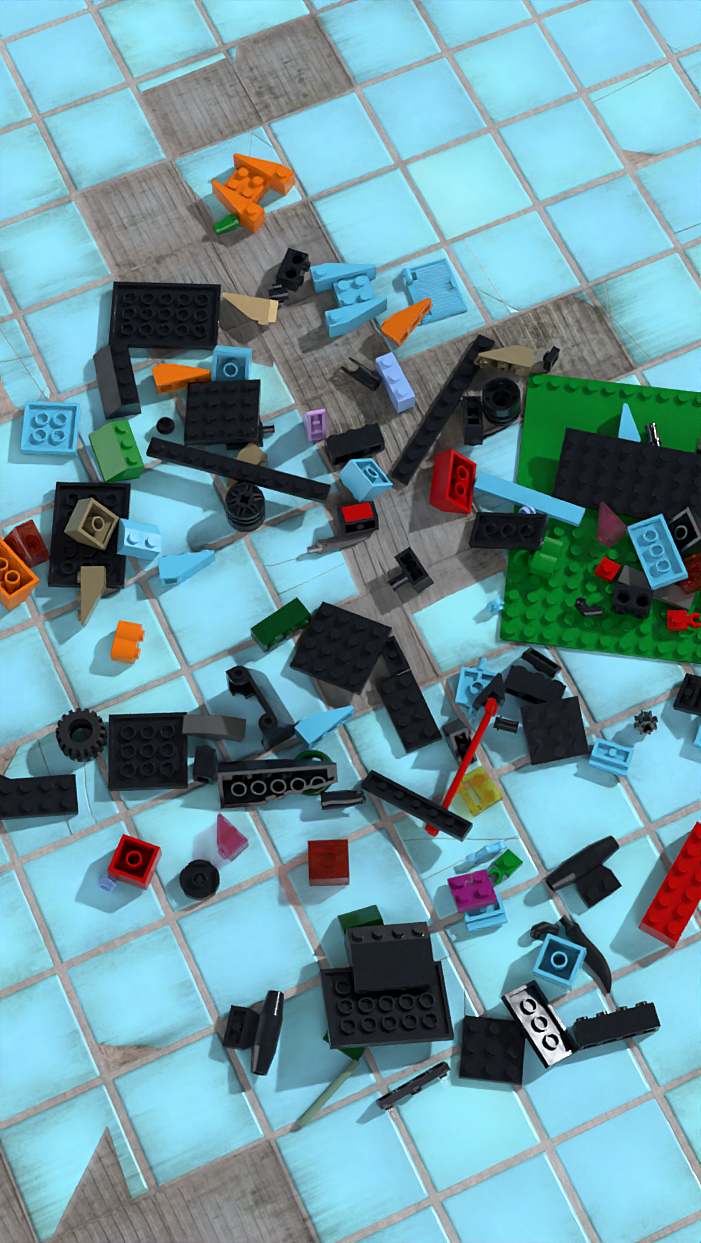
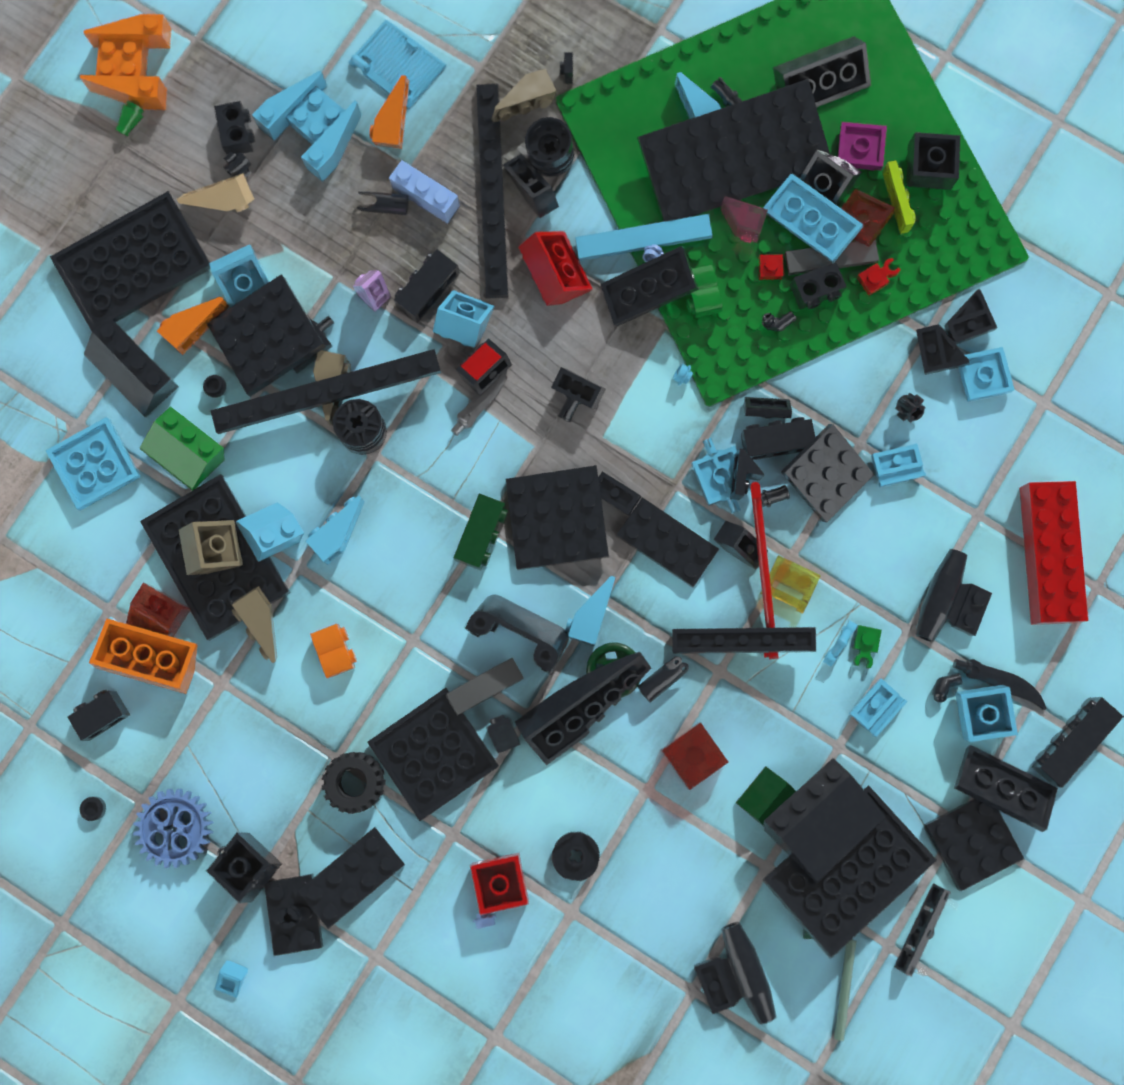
camera: 30 degrees left, 15 degrees up
(229, 839) = (578, 795): clear pink slope -> none
(472, 891) = (853, 693): magenta plate -> none

